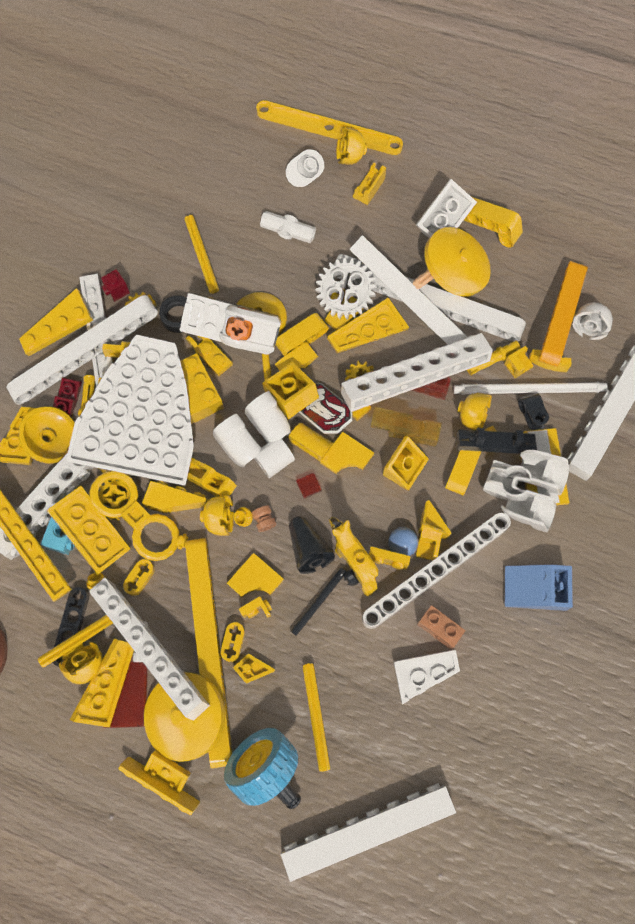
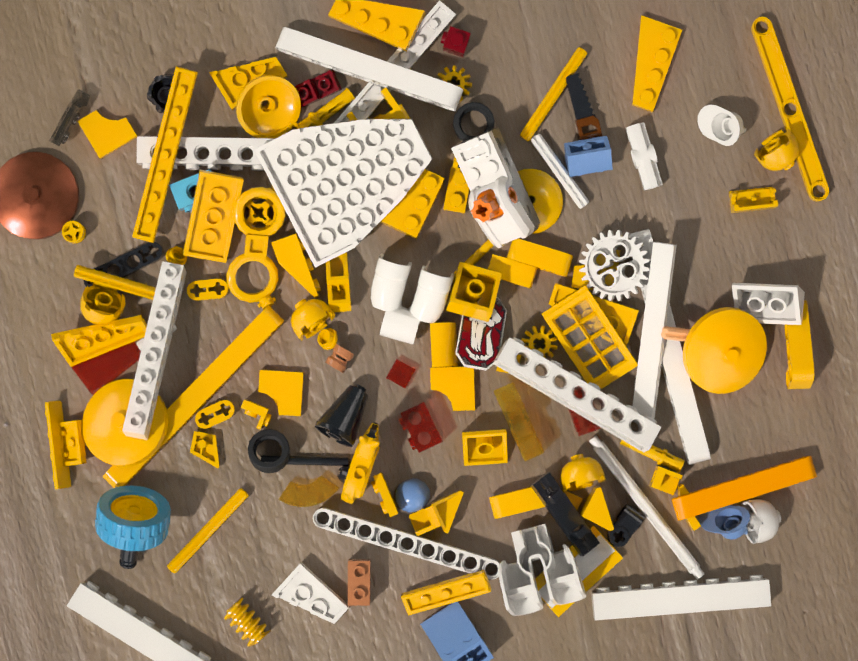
camera: 50 degrees right, 15 degrees up
(10, 643) = (70, 230): none -> yellow wheel
(227, 243) = (582, 108): none -> black piece
(232, 183) = (655, 51): none -> yellow wing
(254, 284) = (559, 171): none -> white axle
(259, 257) = (588, 156): none -> medium blue brick
(278, 613) = (267, 435): none -> black tyre
(346, 616) = (308, 494): none -> clear yellow tile
(359, 493) = (426, 425): none -> clear red brick
(381, 340) = (589, 338): none -> yellow piece
(411, 740) = (246, 622): none -> yellow piece
(495, 568) = (446, 592): none -> yellow tile
(509, 416) = (596, 509): none -> yellow slope
(580, 340) = (727, 521): none -> medium blue piece

